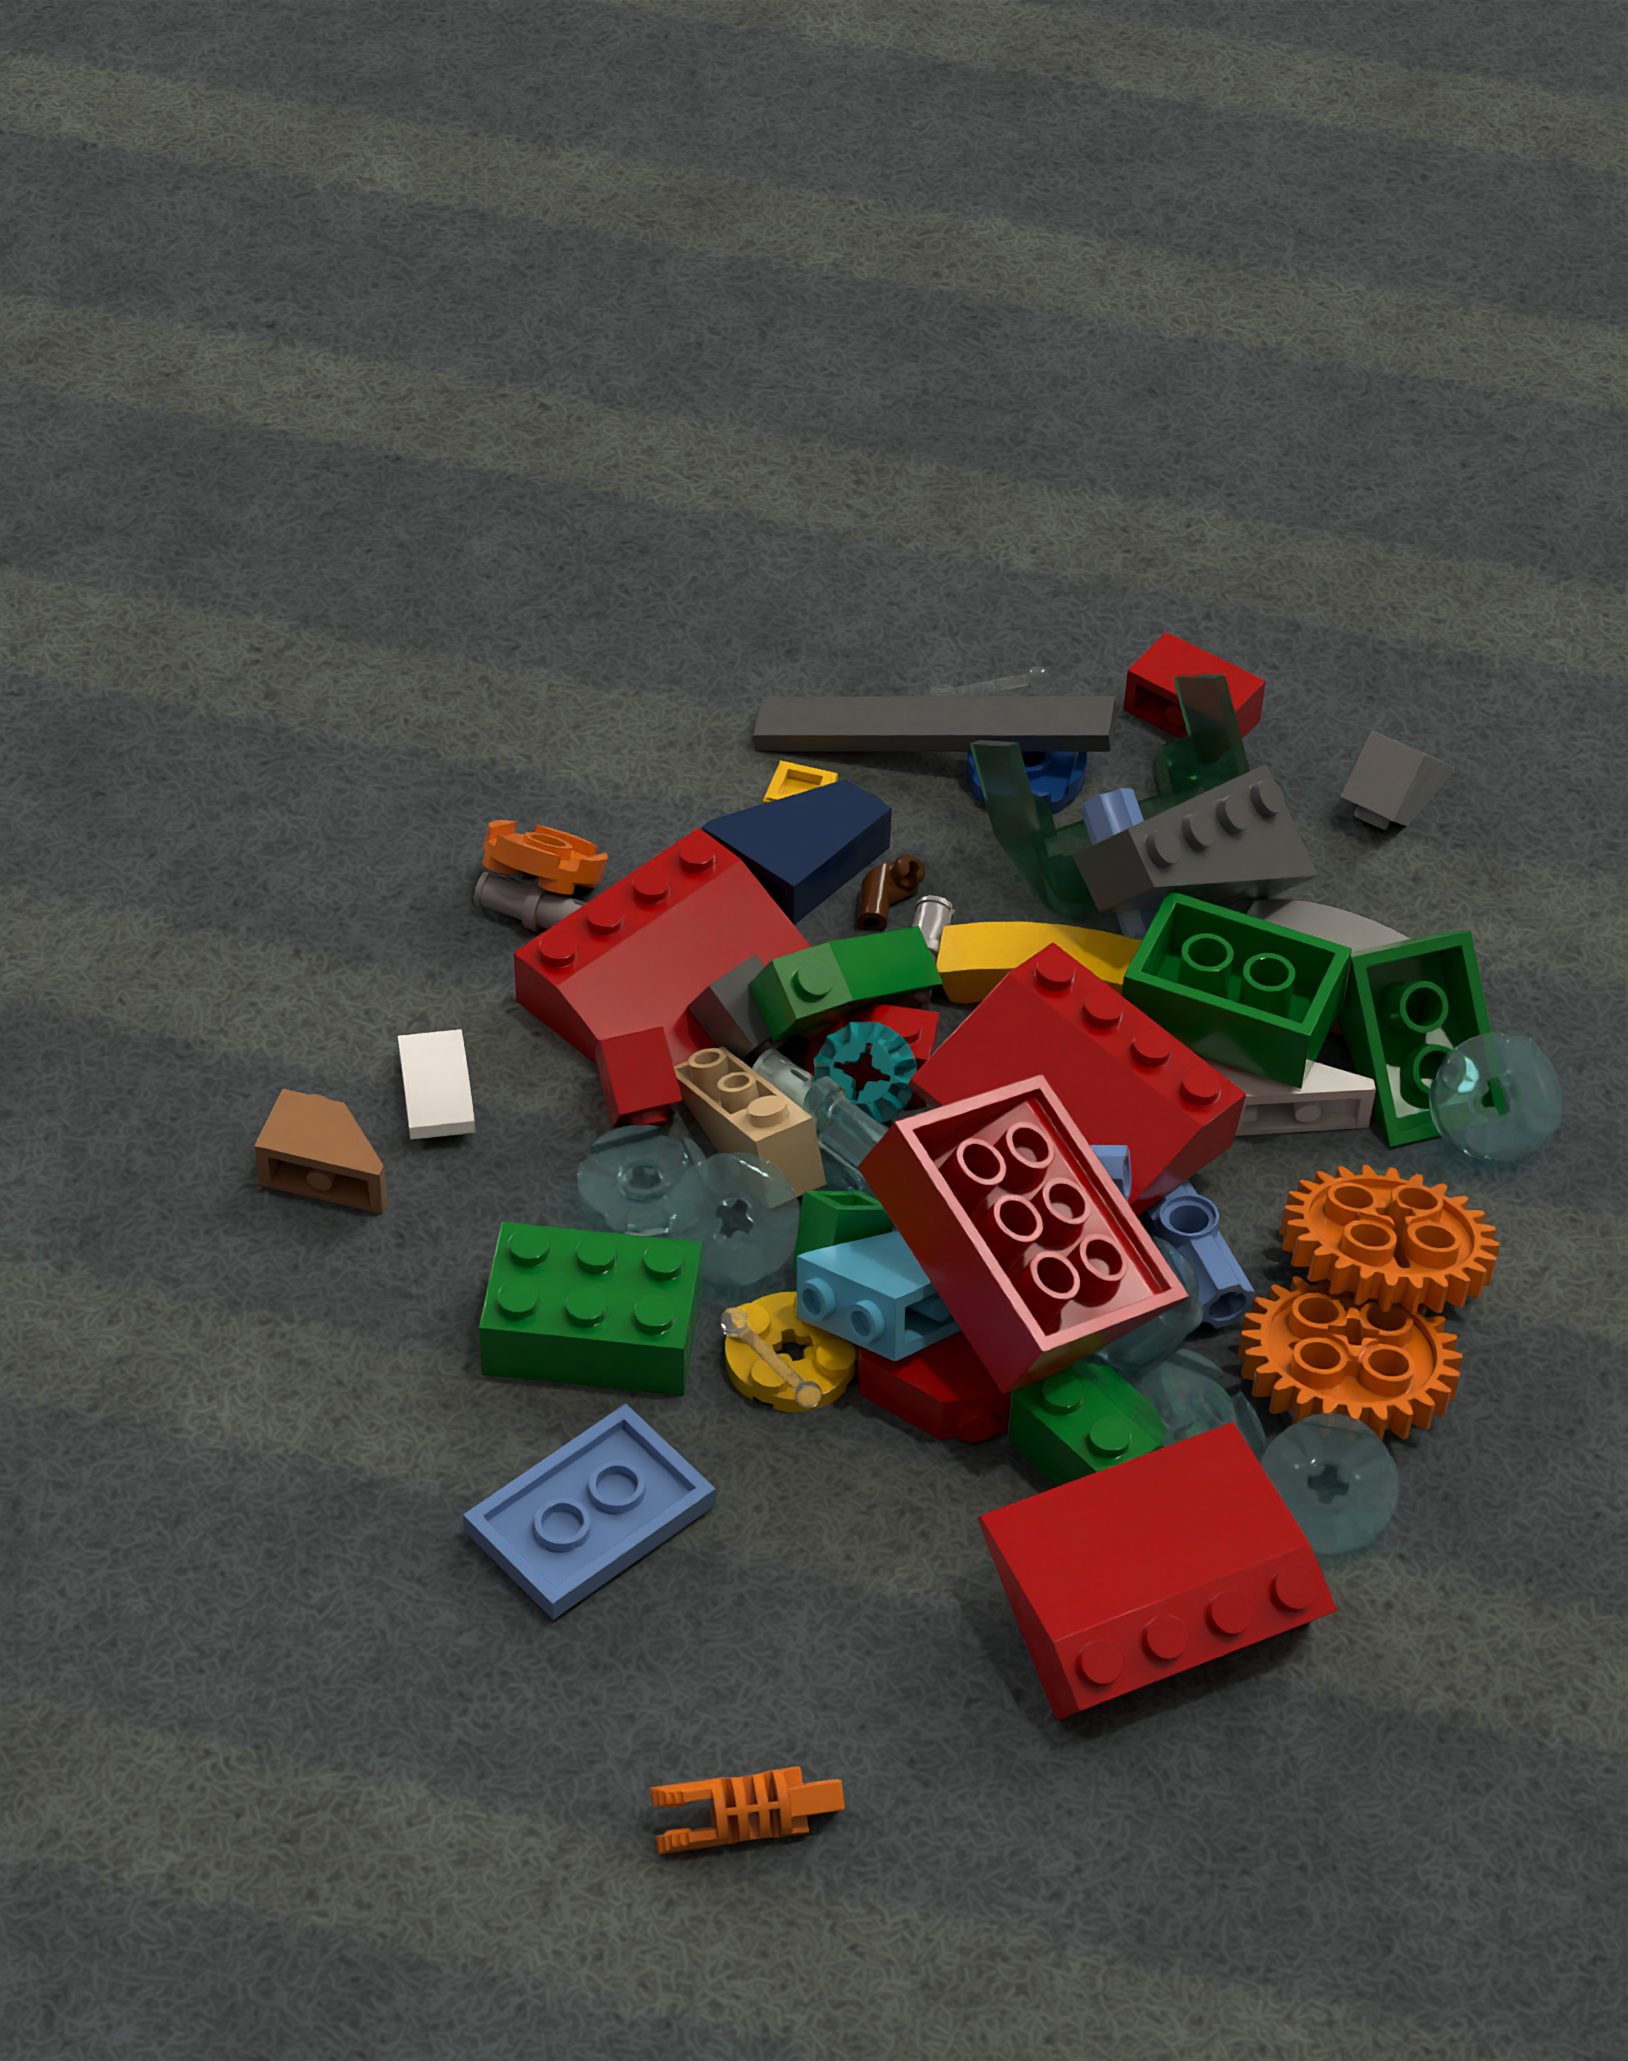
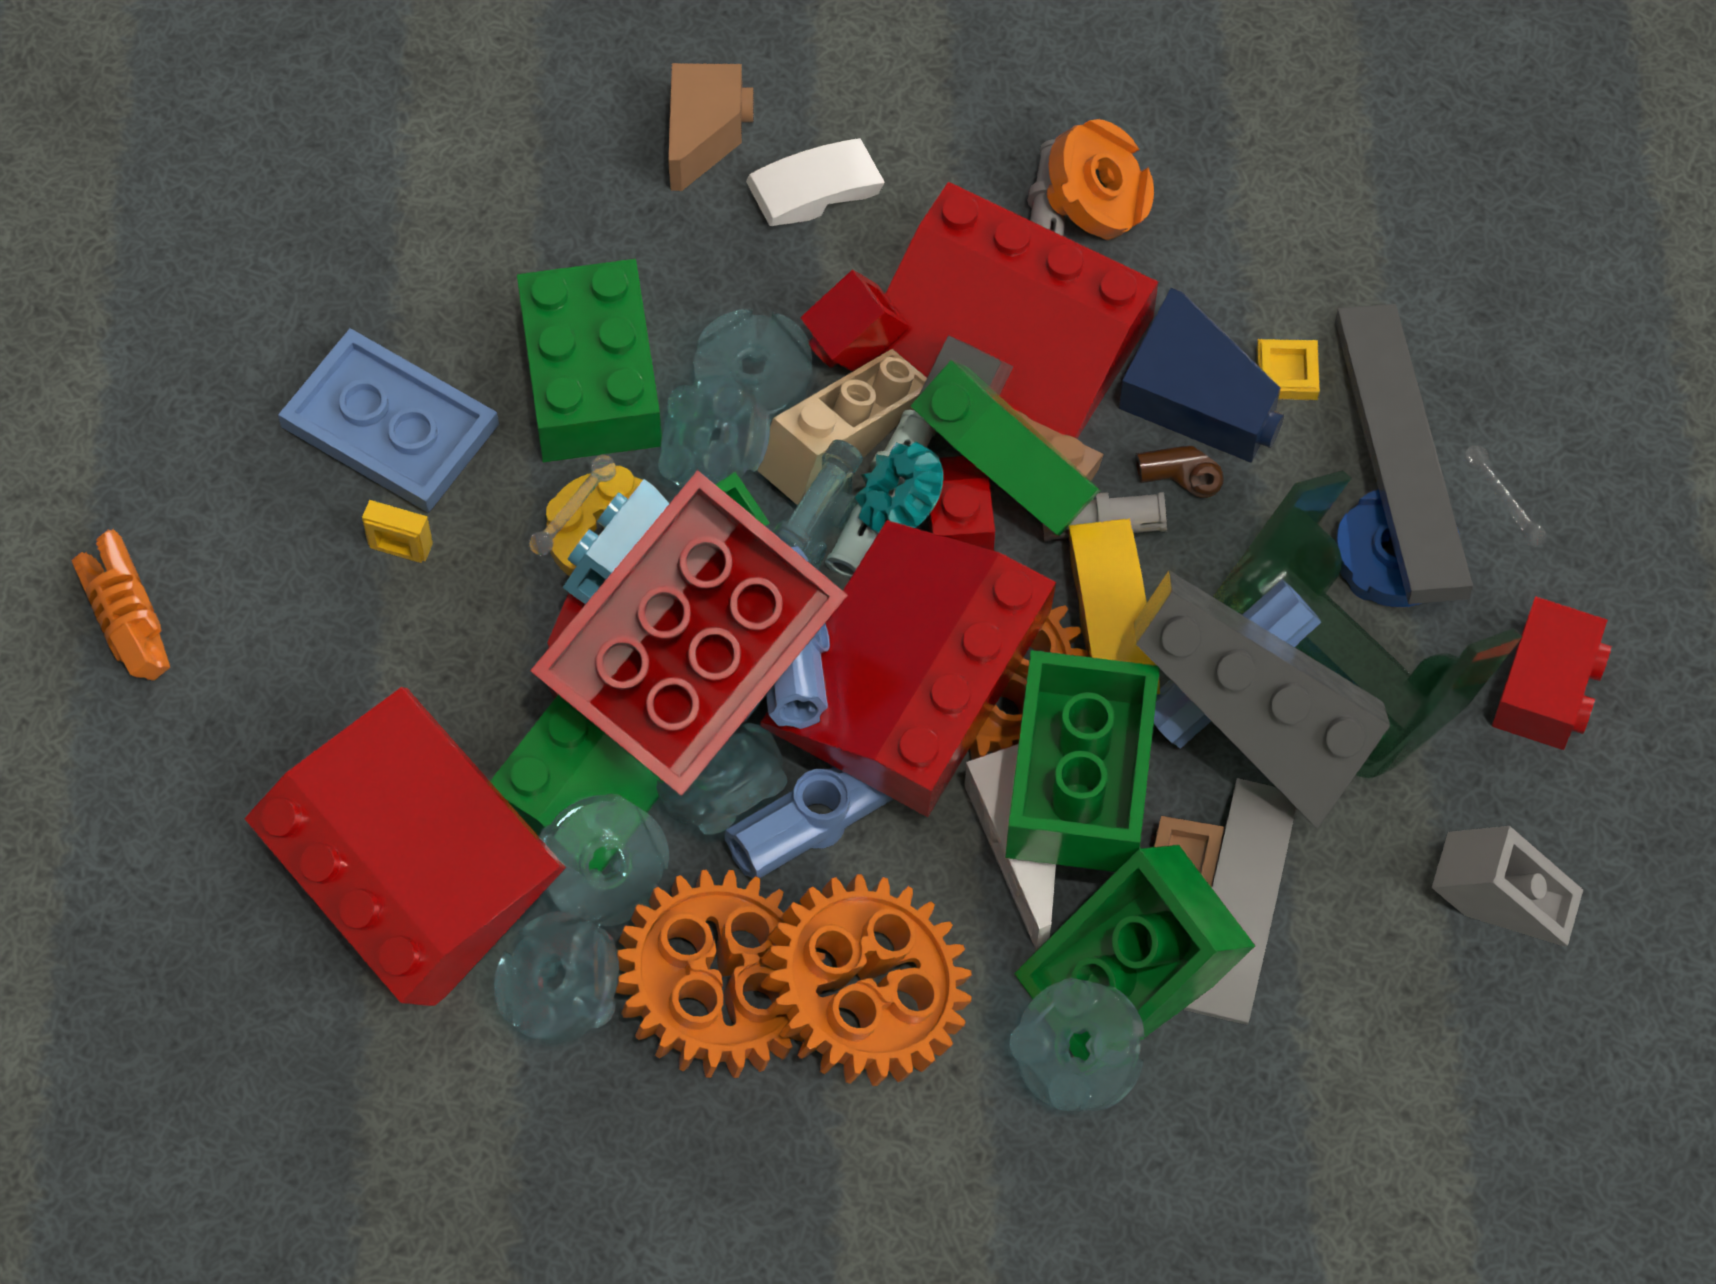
camera: 75 degrees right, 15 degrees up
(742, 1524) = (397, 531): none -> yellow tile

